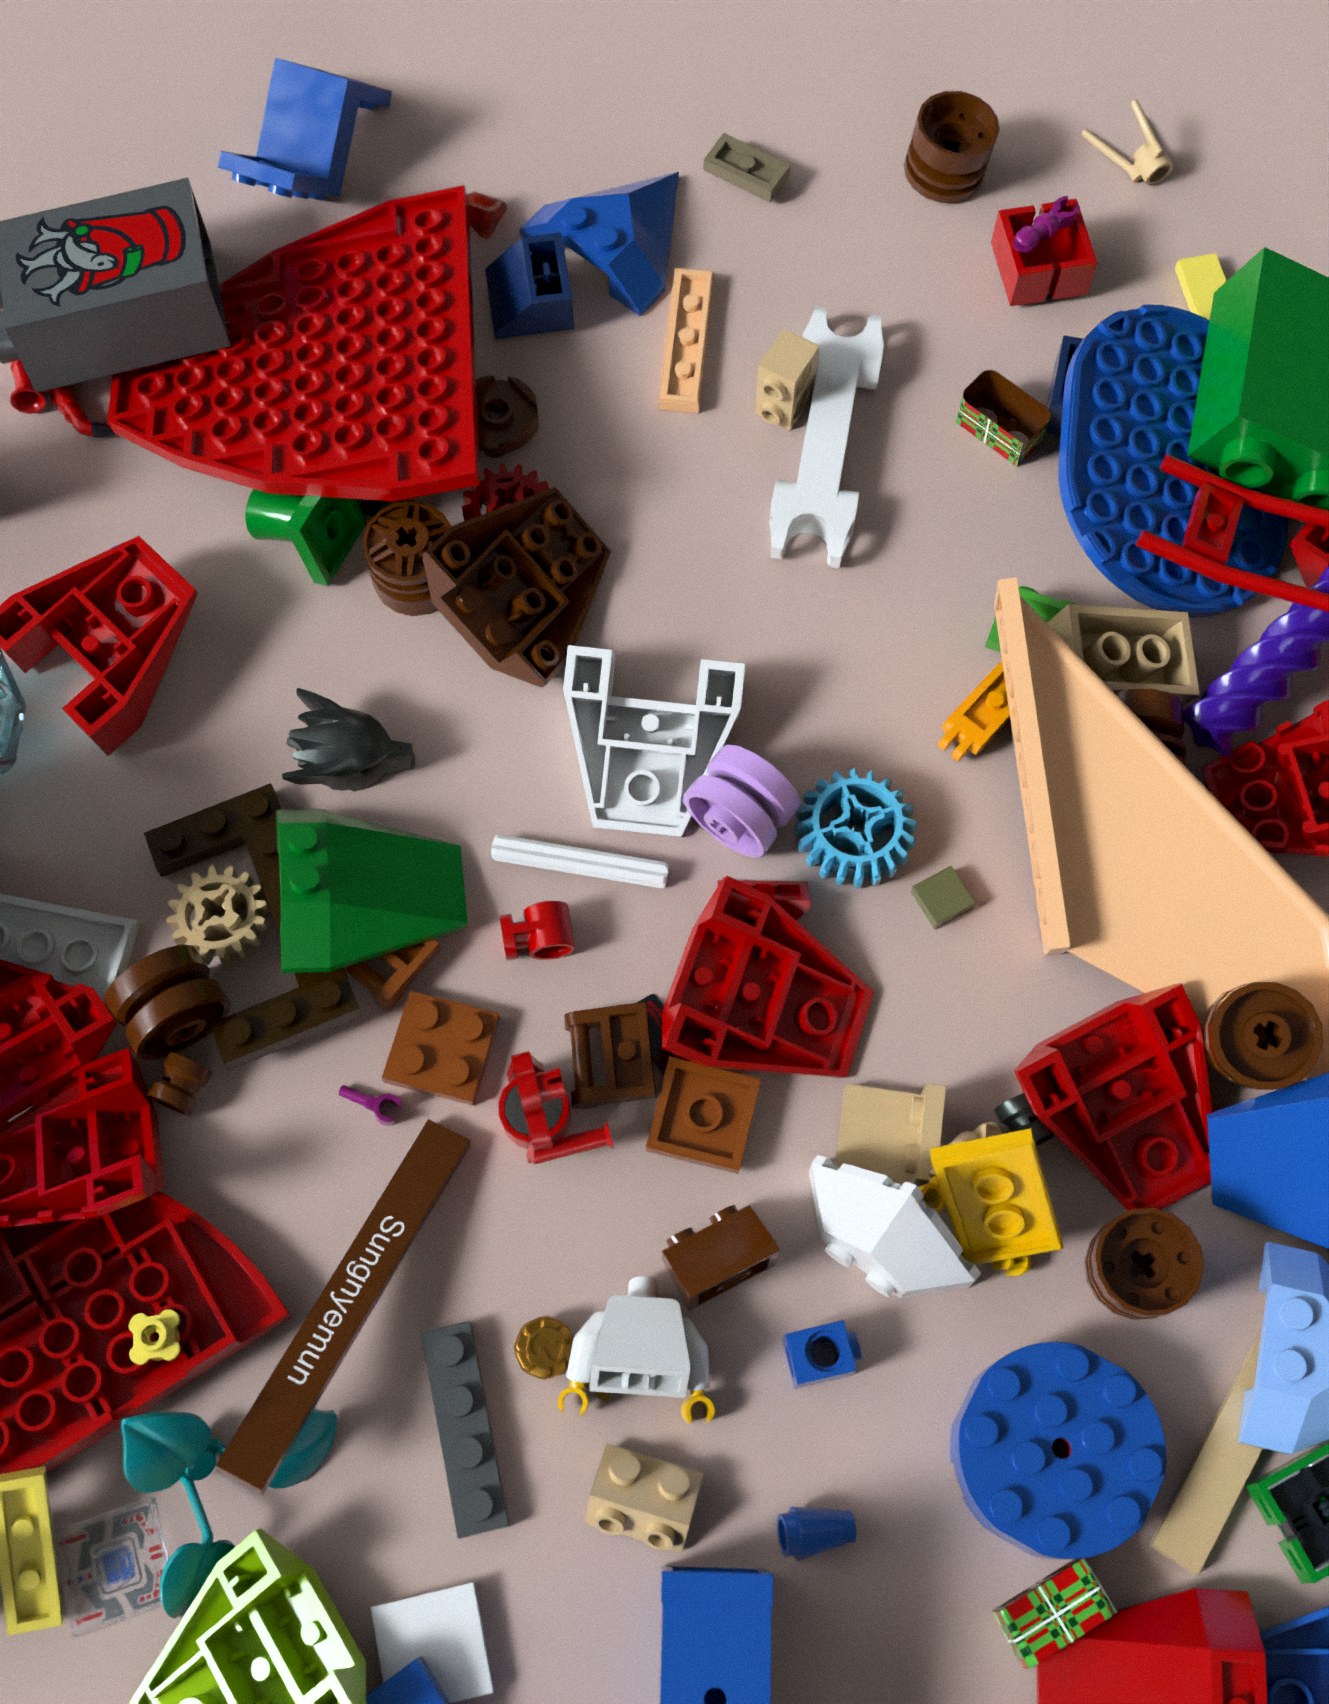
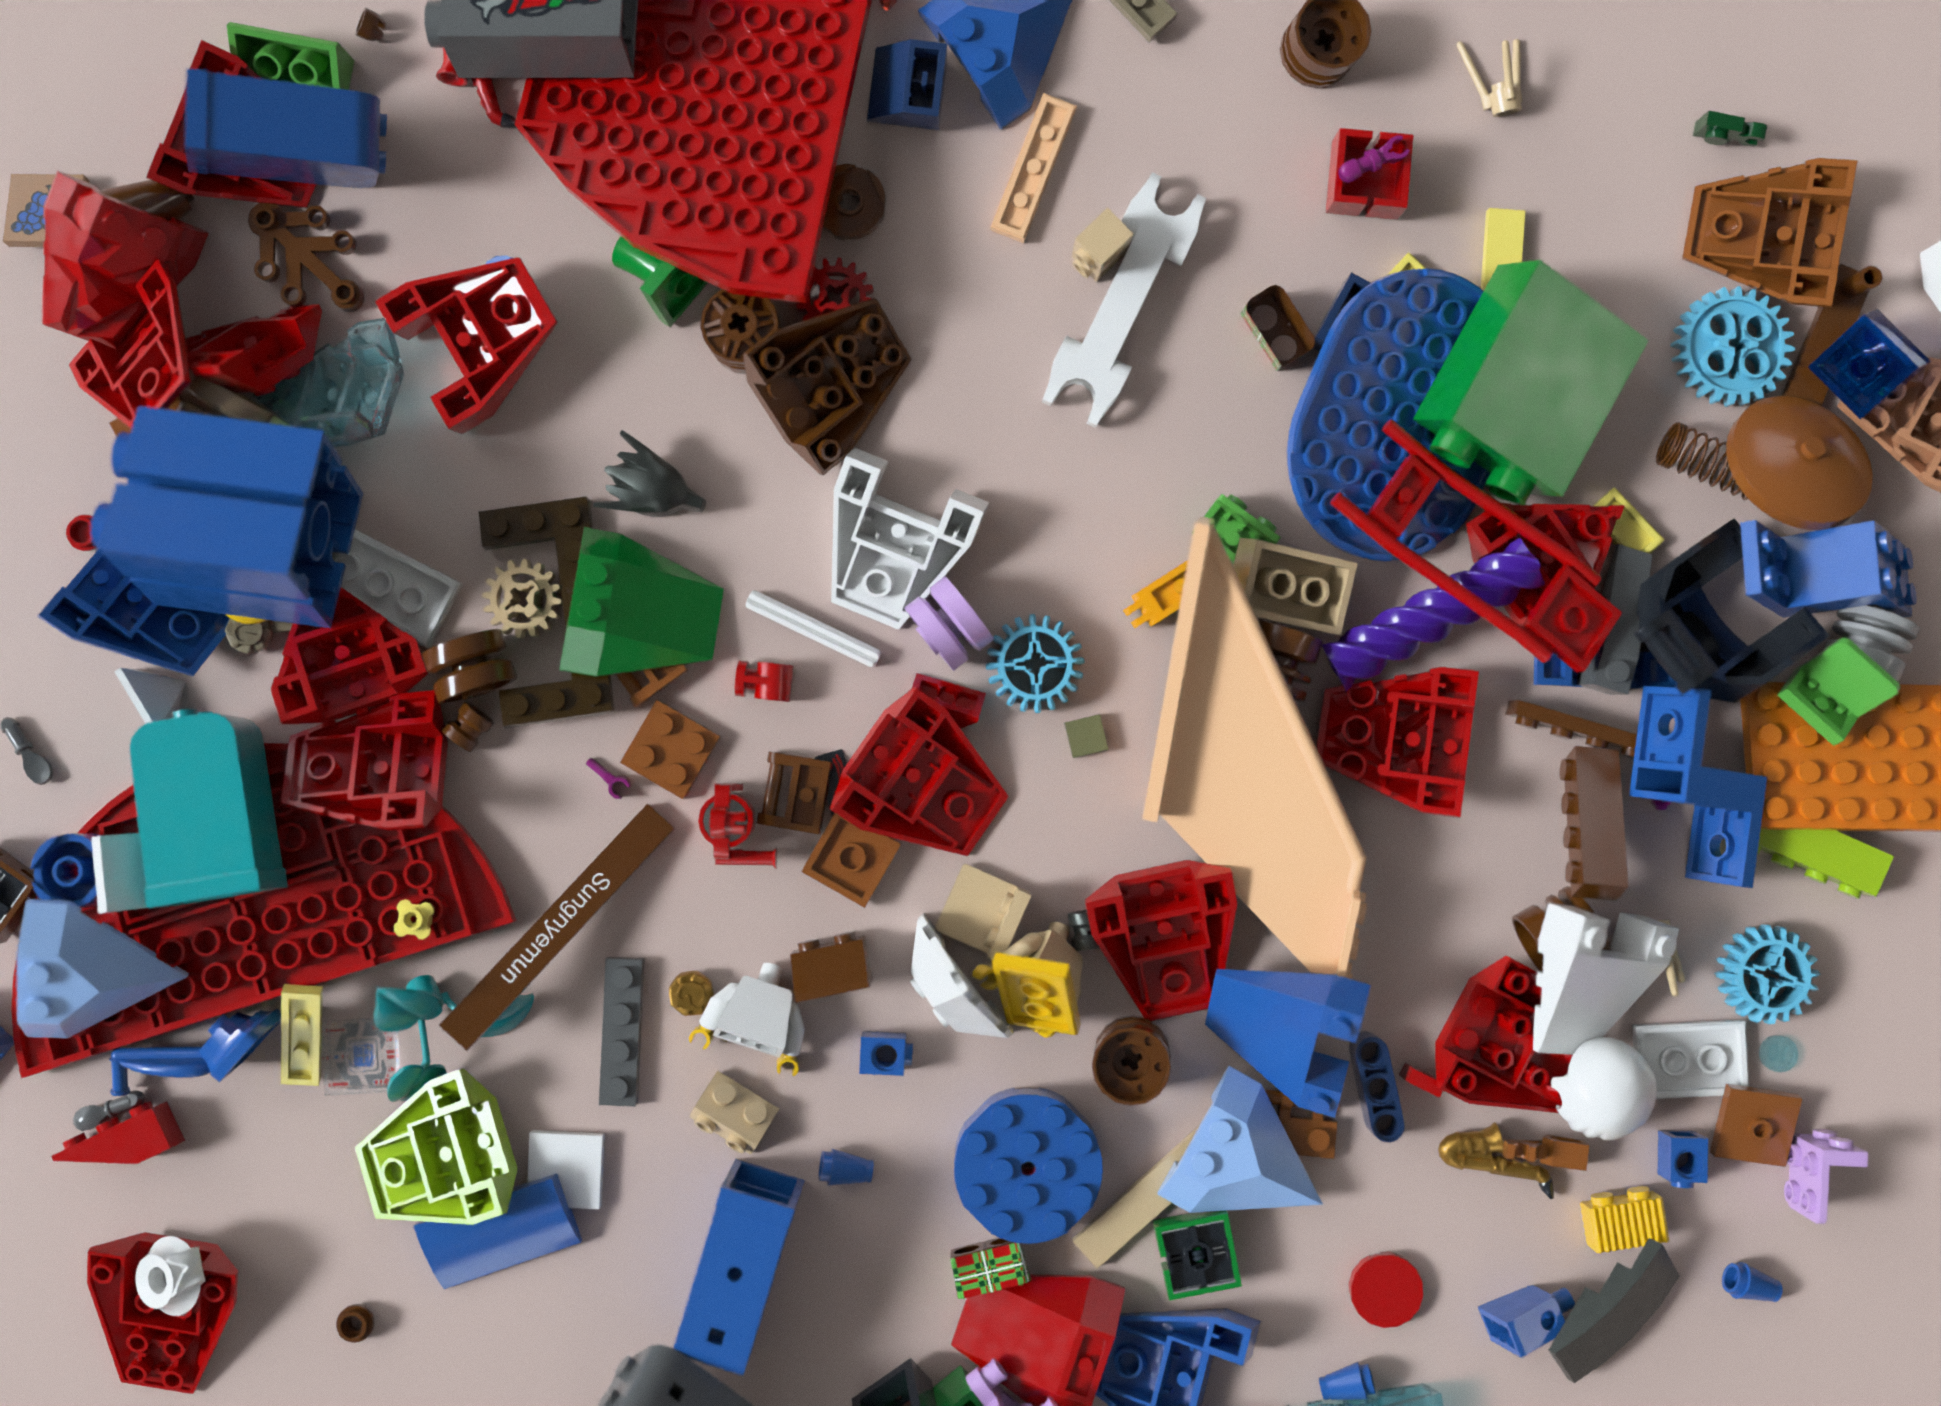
camera: 10 degrees right, 20 degrees up
(1291, 1031) = (1274, 949): reddish brown wheel -> none

